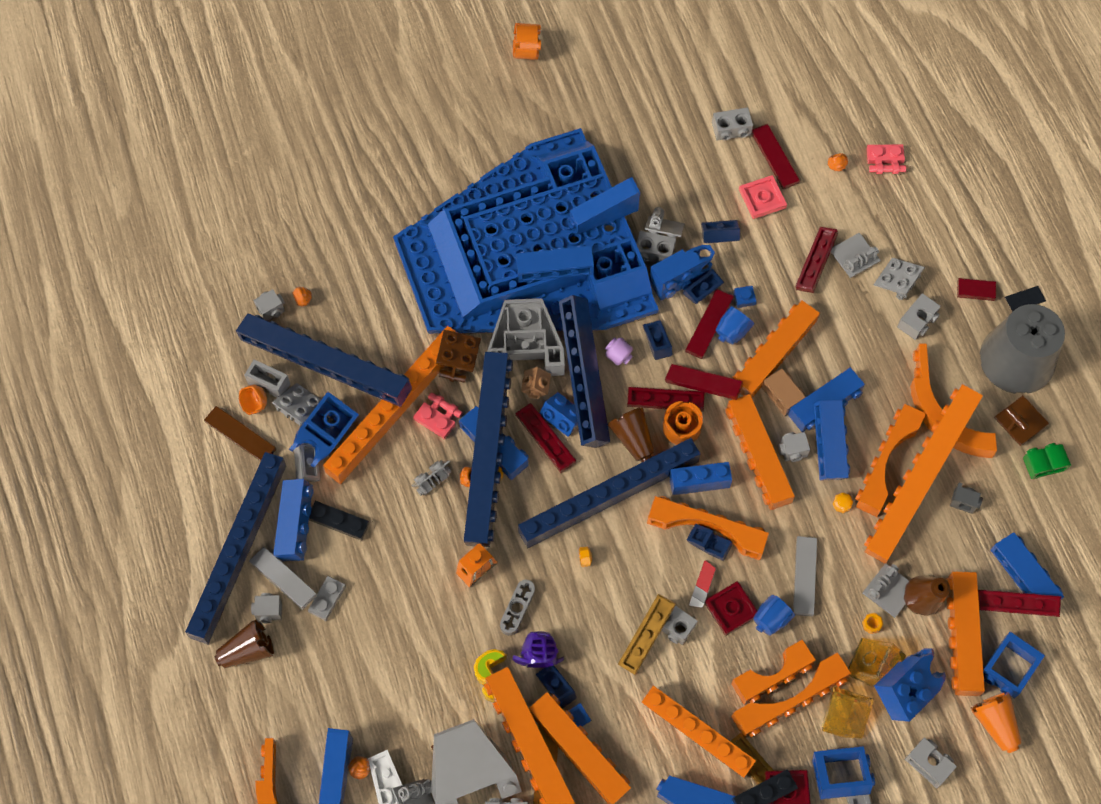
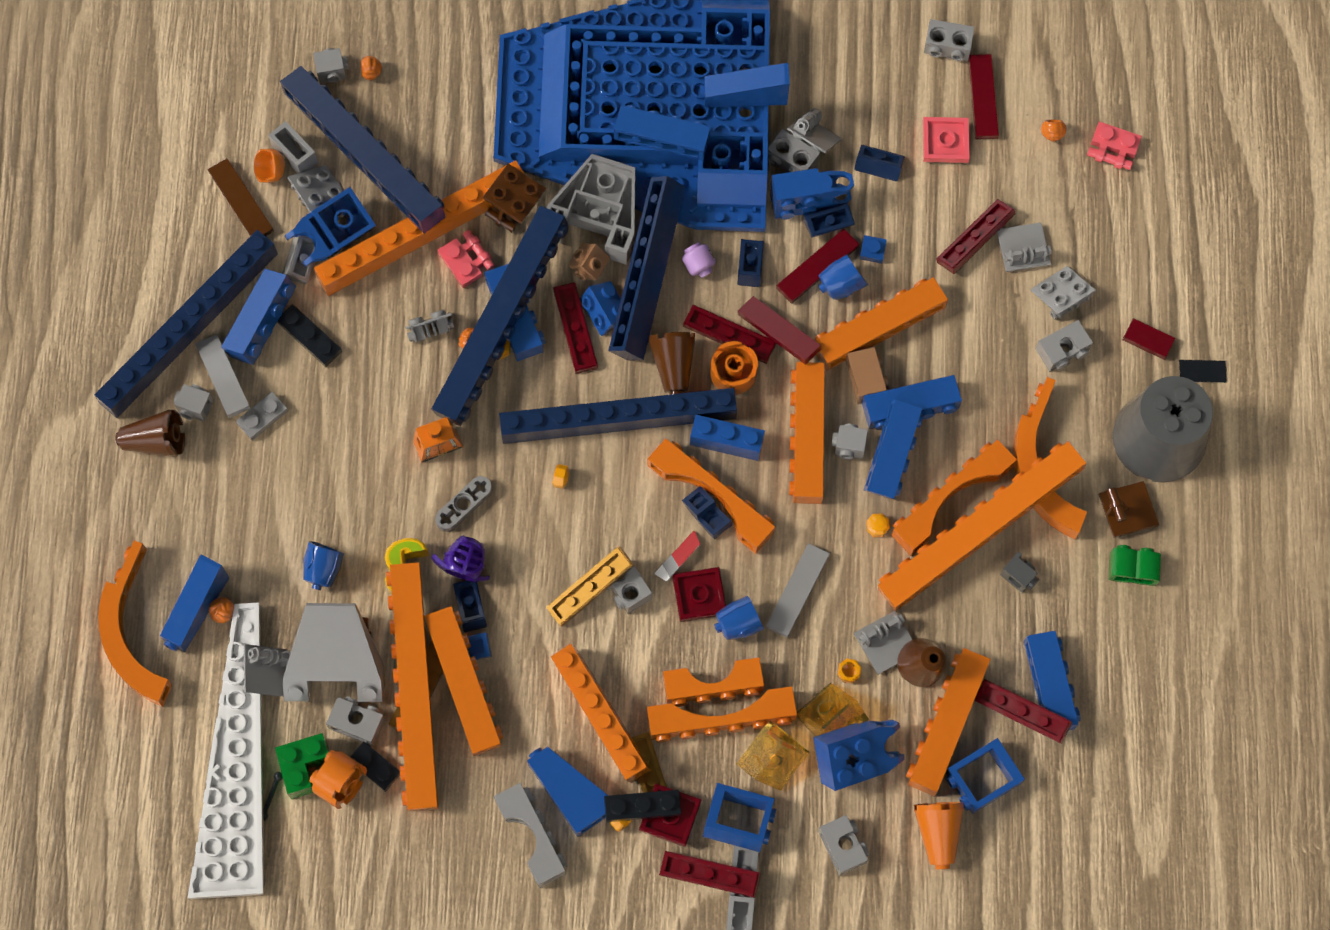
camera: 20 degrees right, 5 degrees up
(426, 699) = (321, 565): none -> blue helmet

